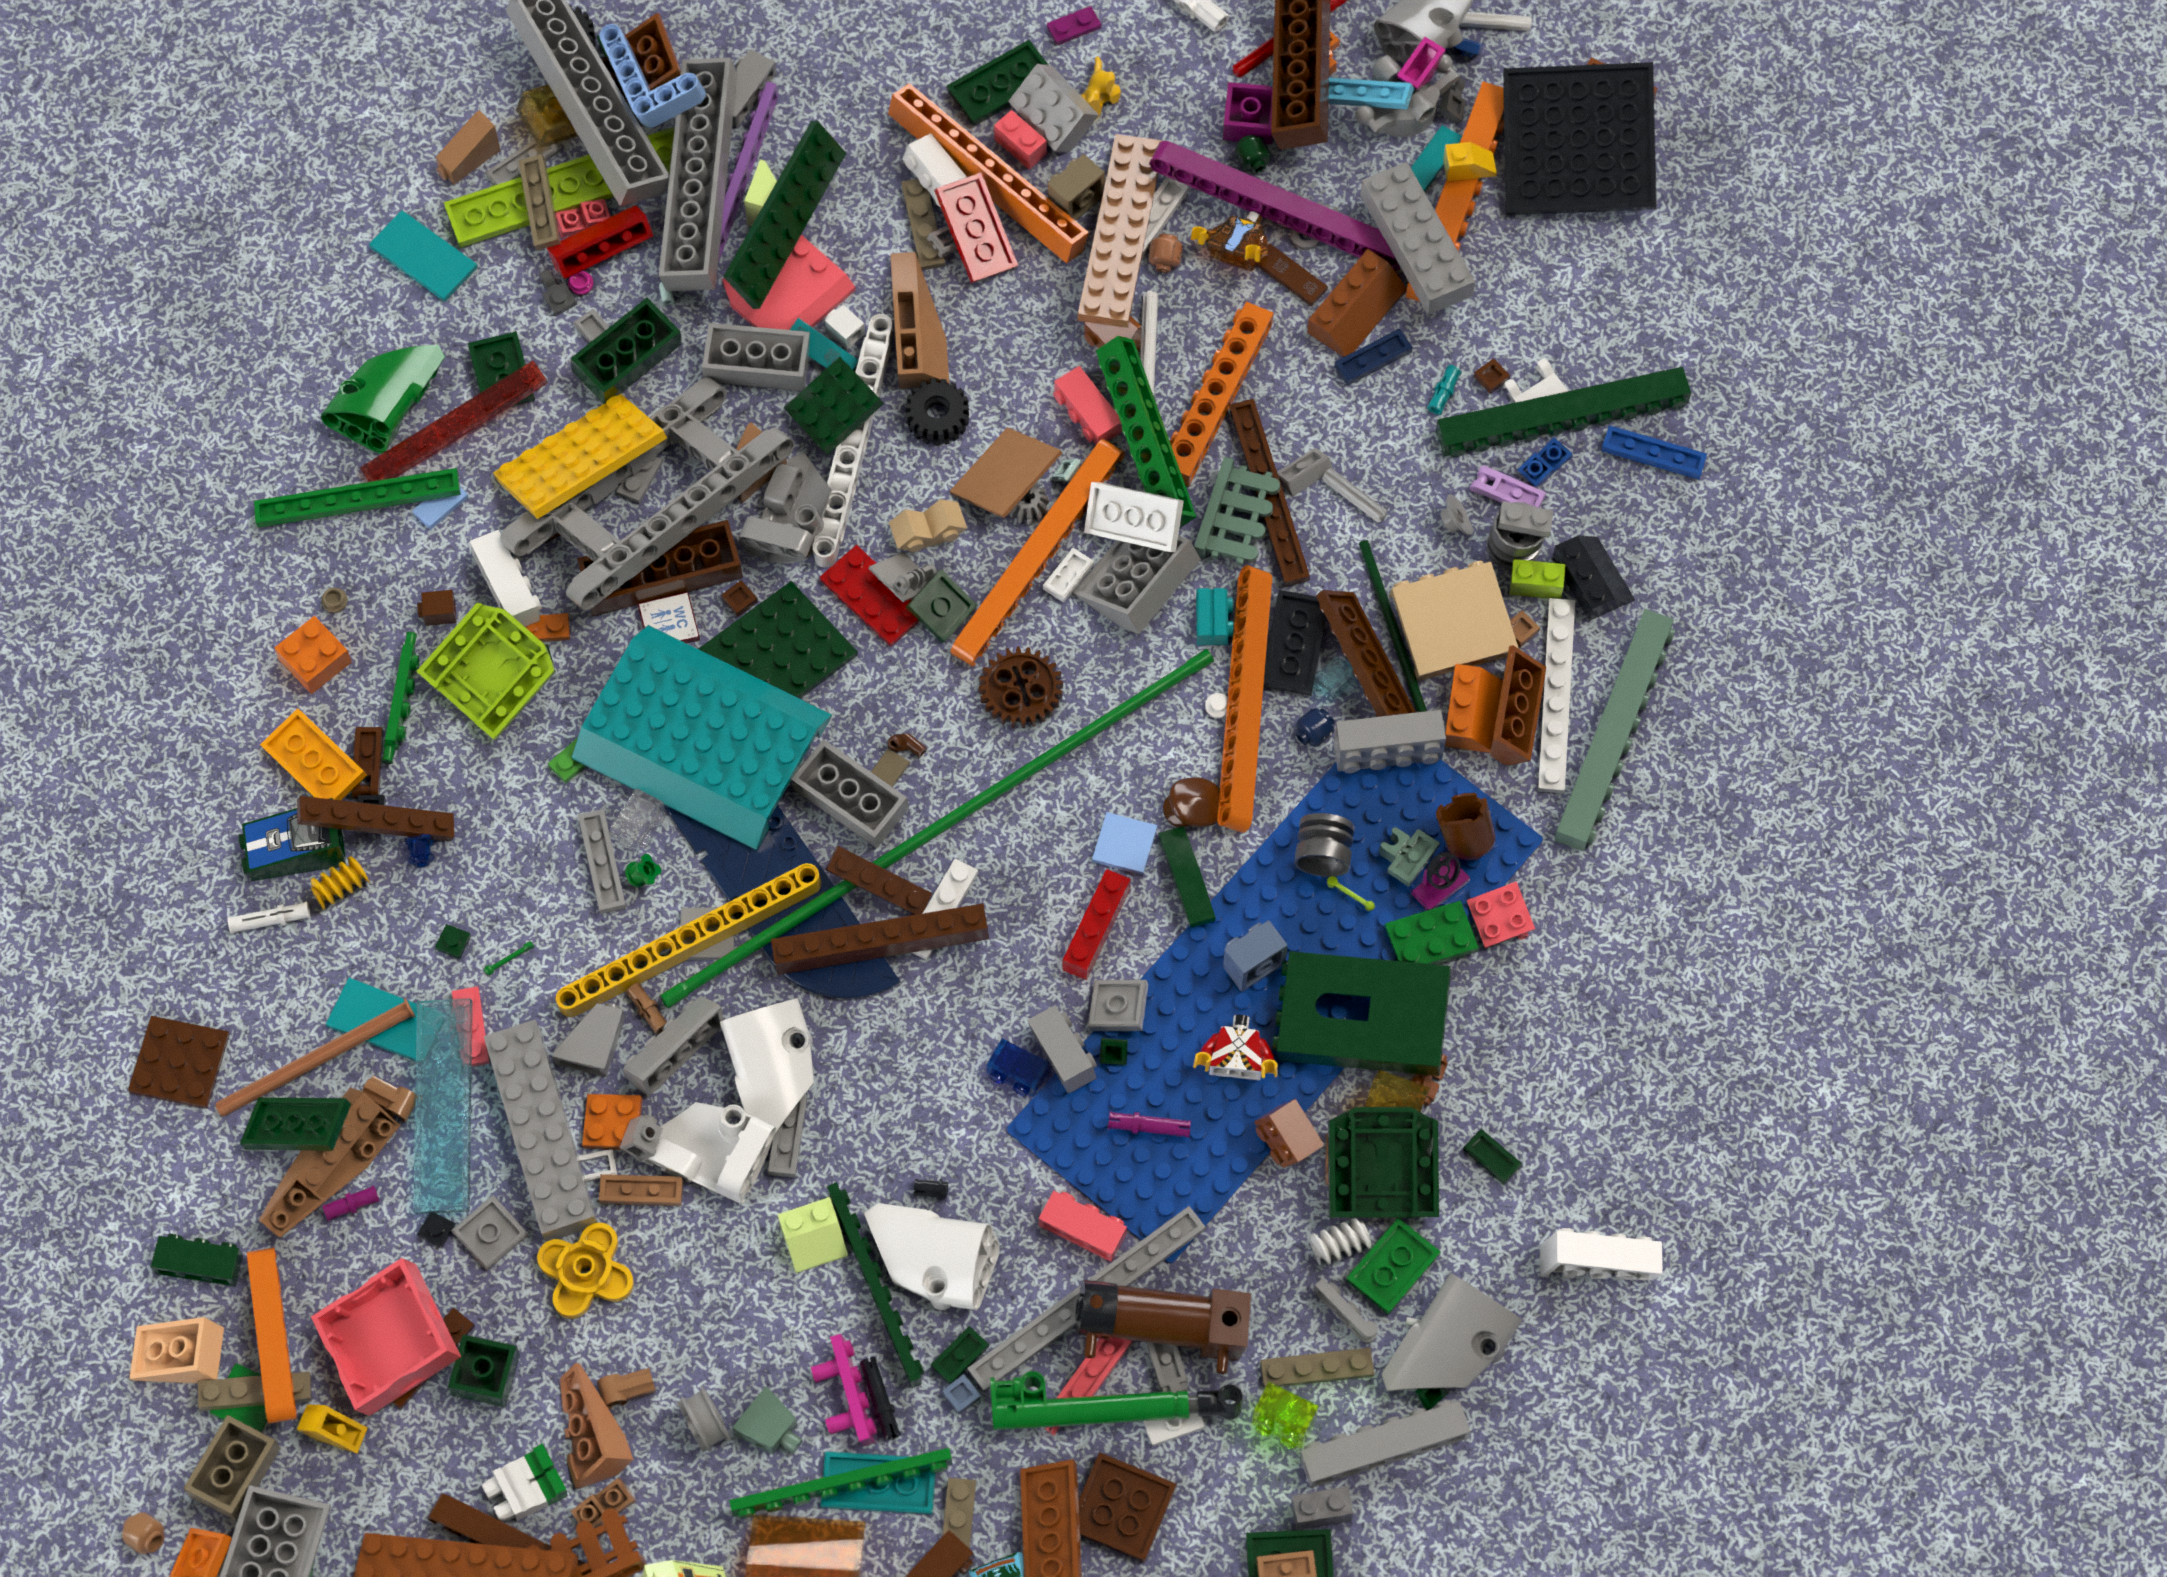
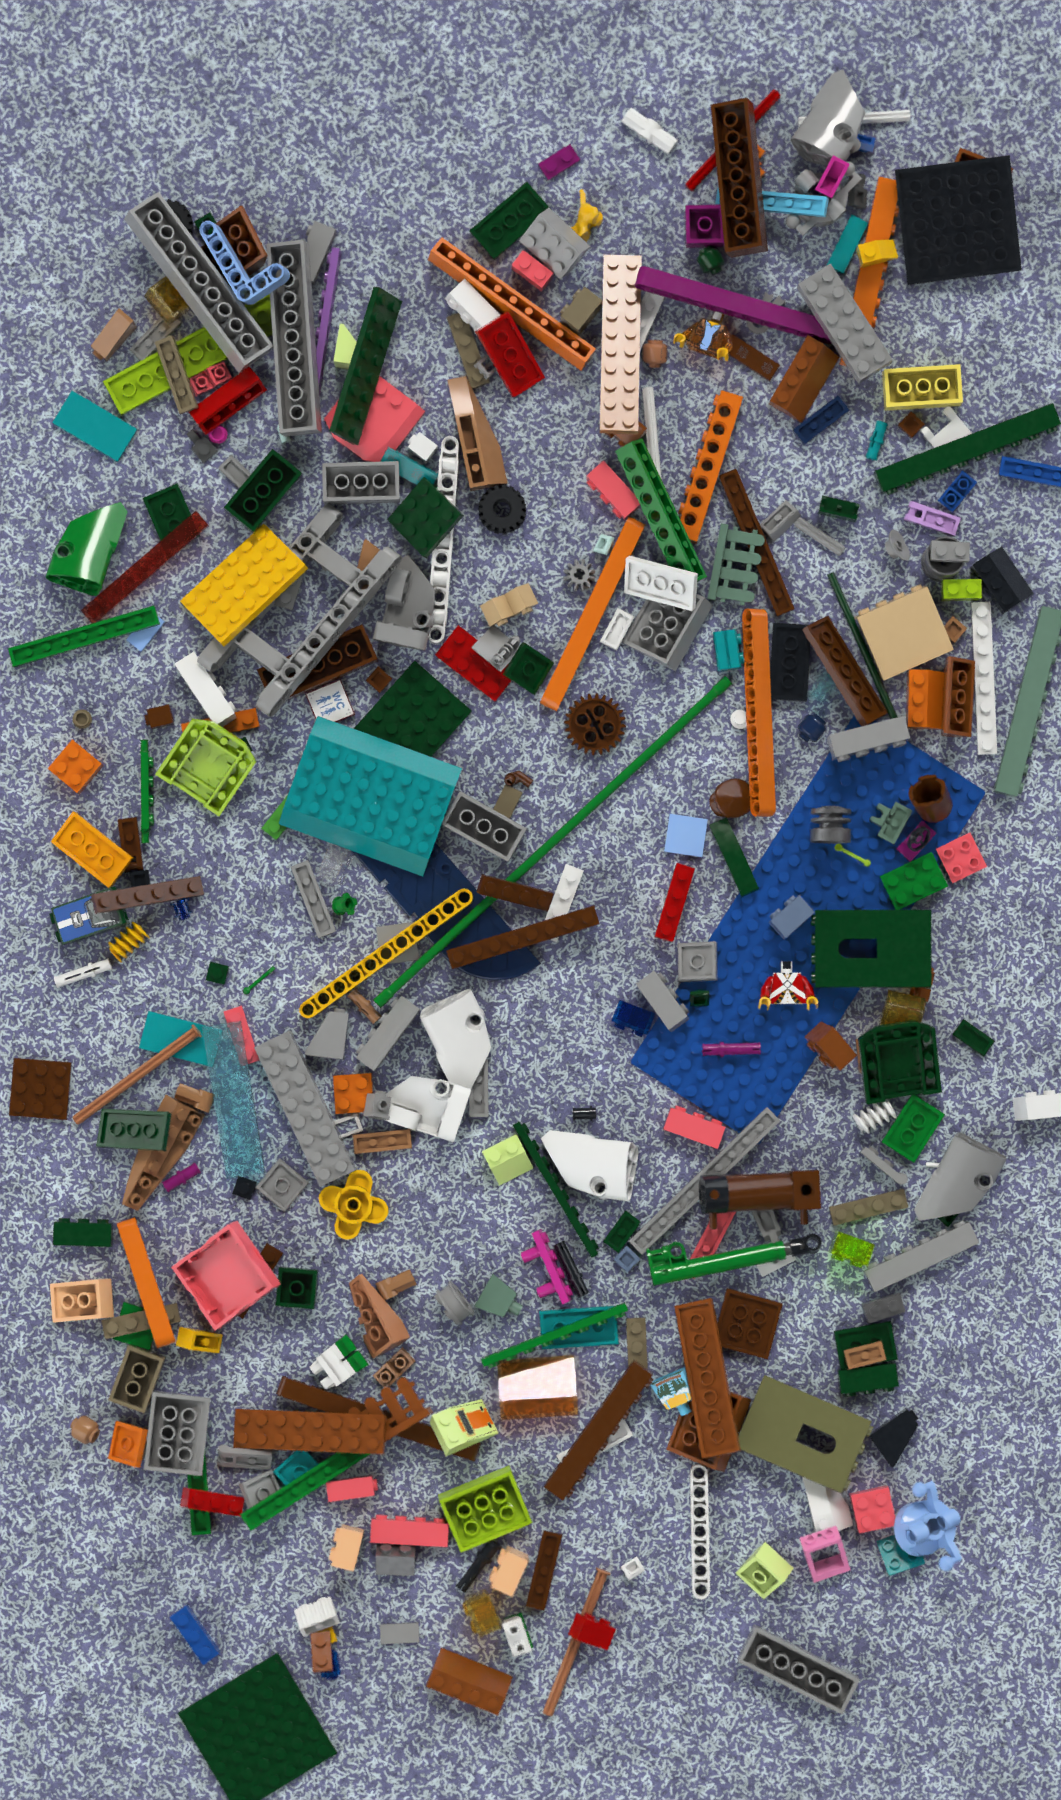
camera: 10 degrees left, 20 degrees up
(1005, 472) = (560, 554): medium nougat piece -> none
(1383, 465) = (838, 508): none -> dark green hinge
(1511, 330) = (922, 387): none -> light yellow brick

